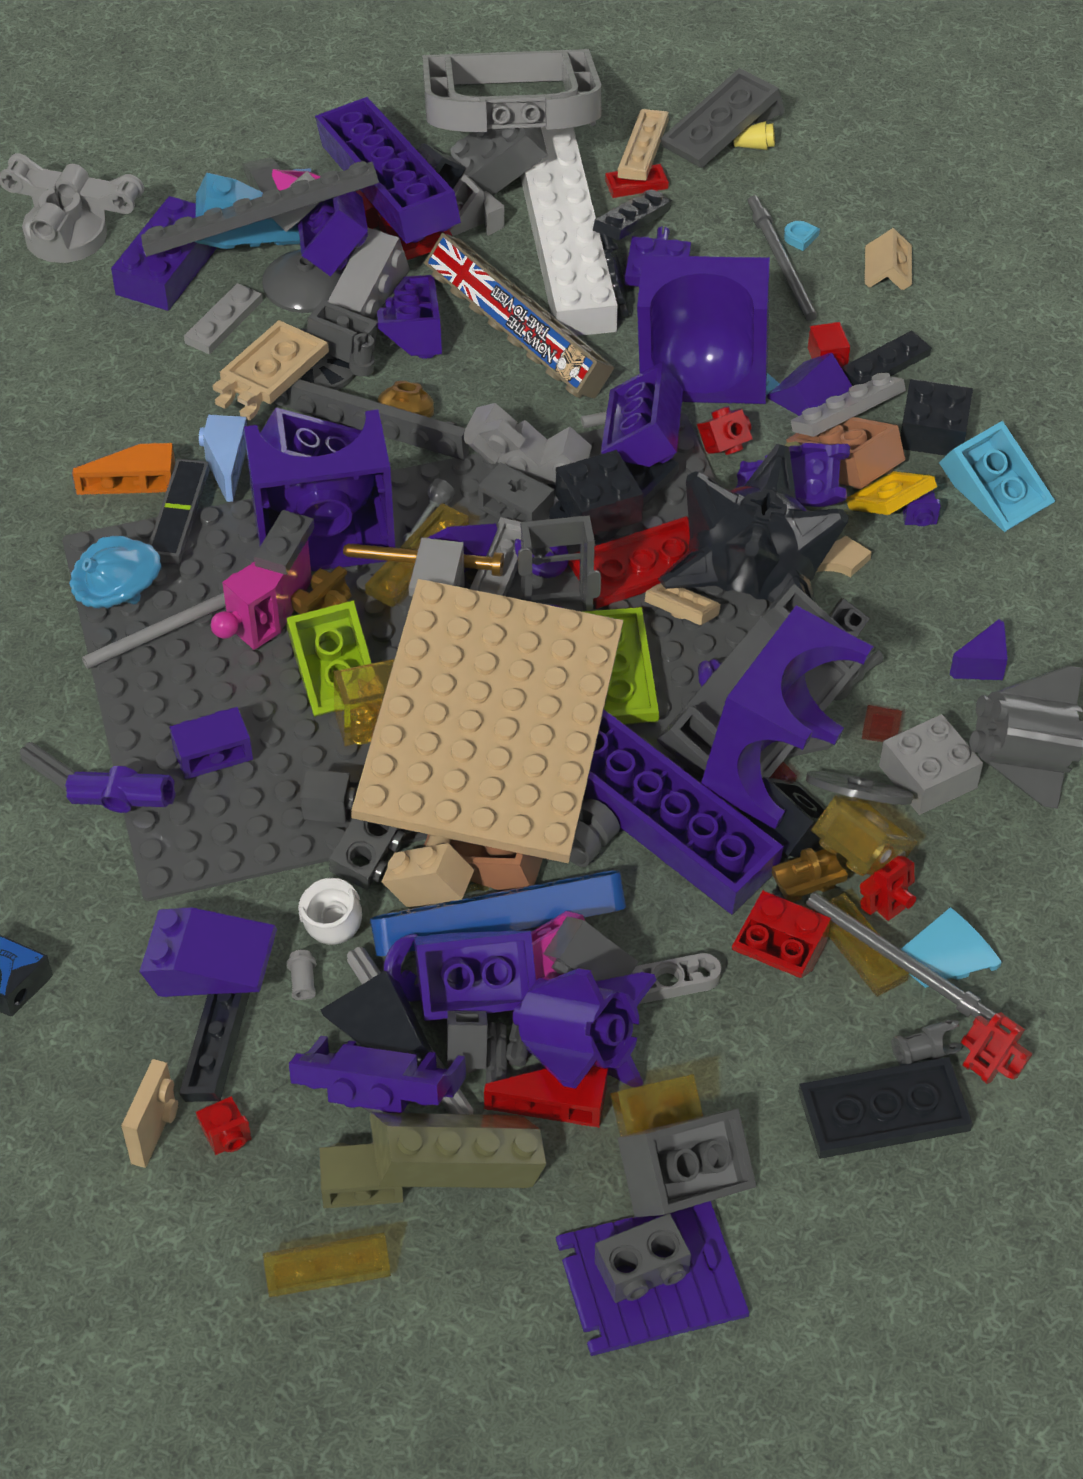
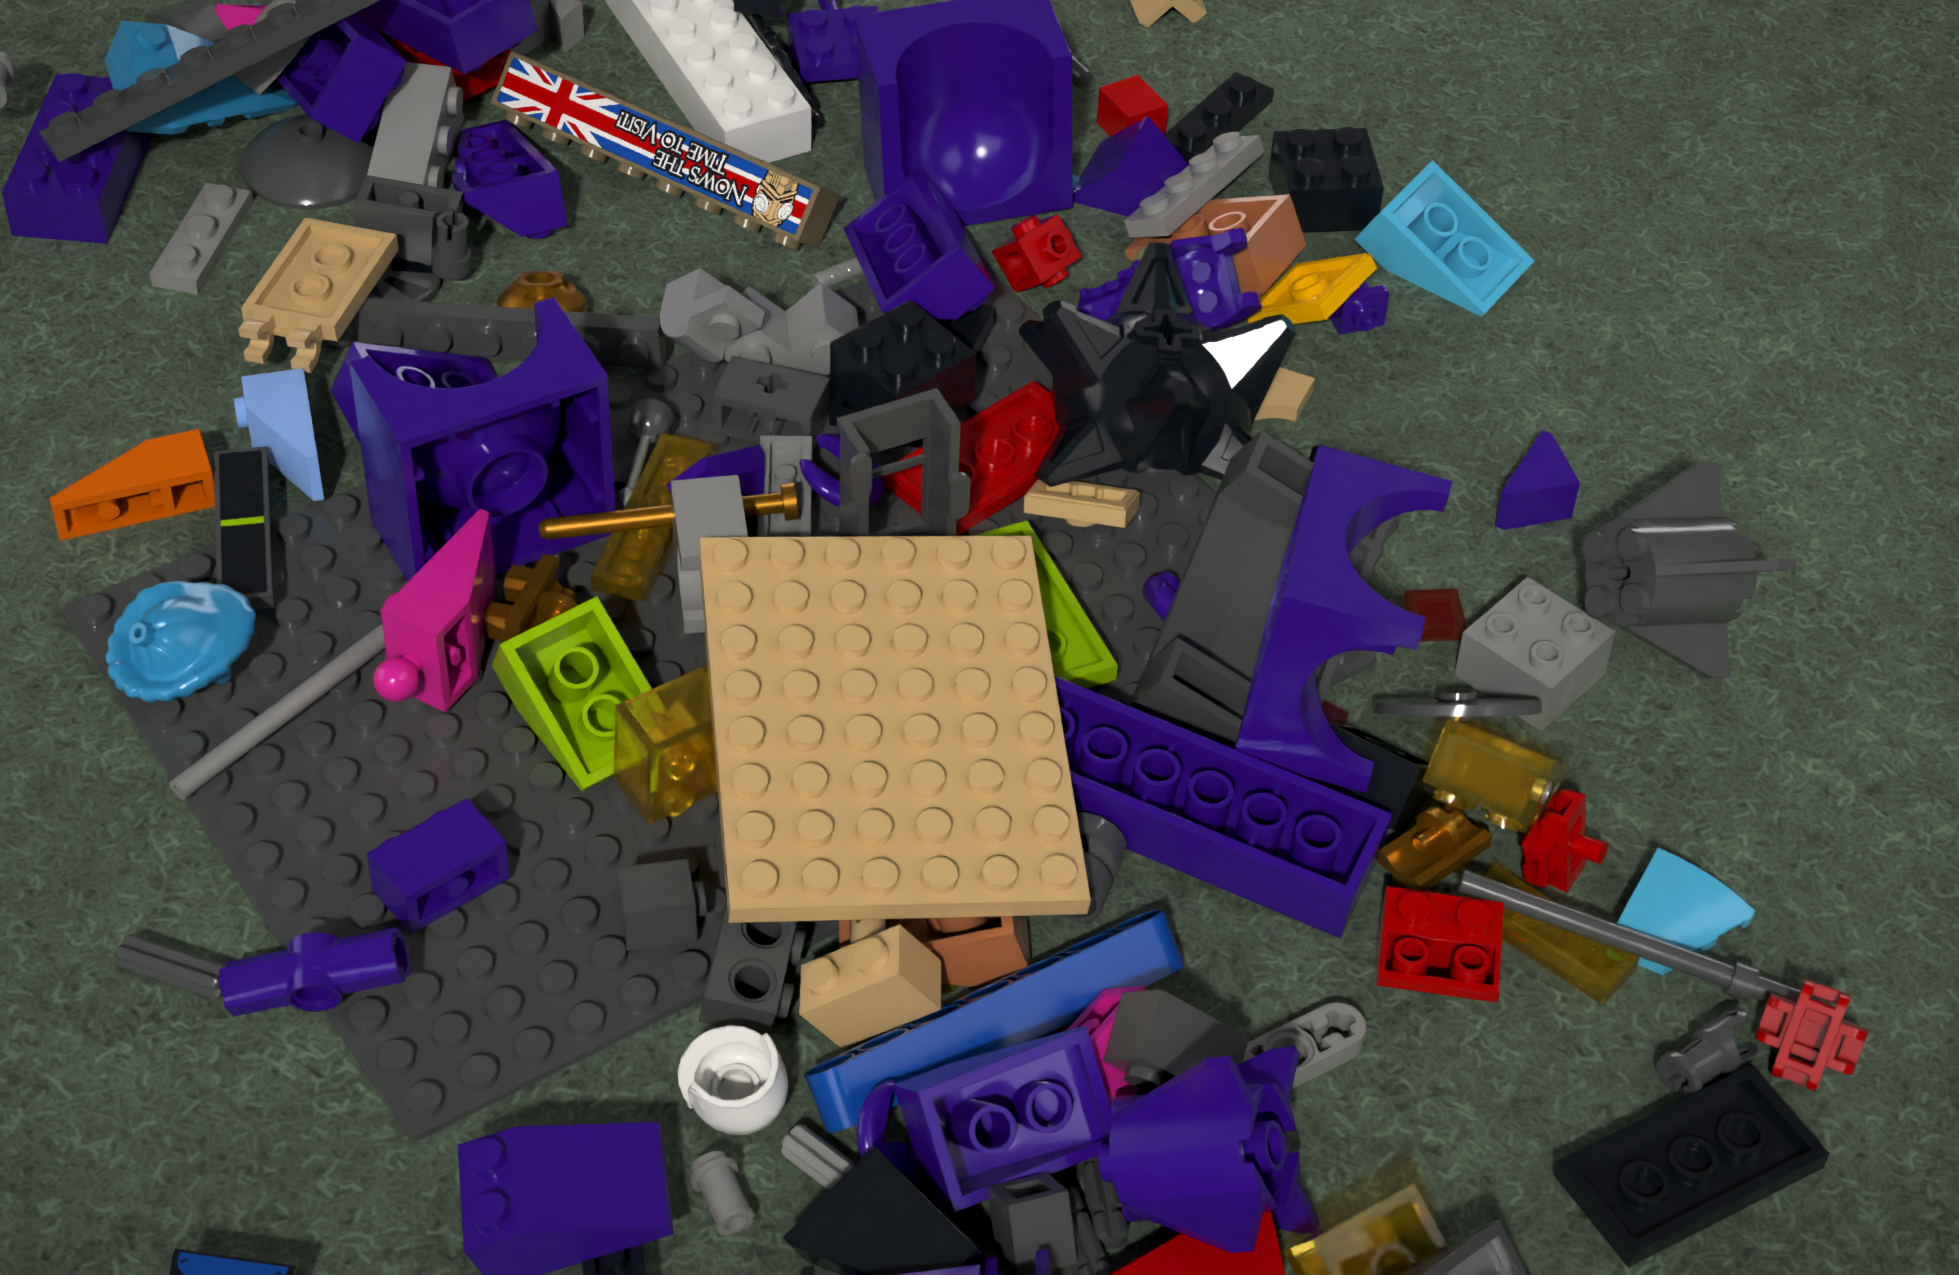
camera: 20 degrees left, 5 degrees down
(284, 542) = (459, 530): dark grey plate -> none

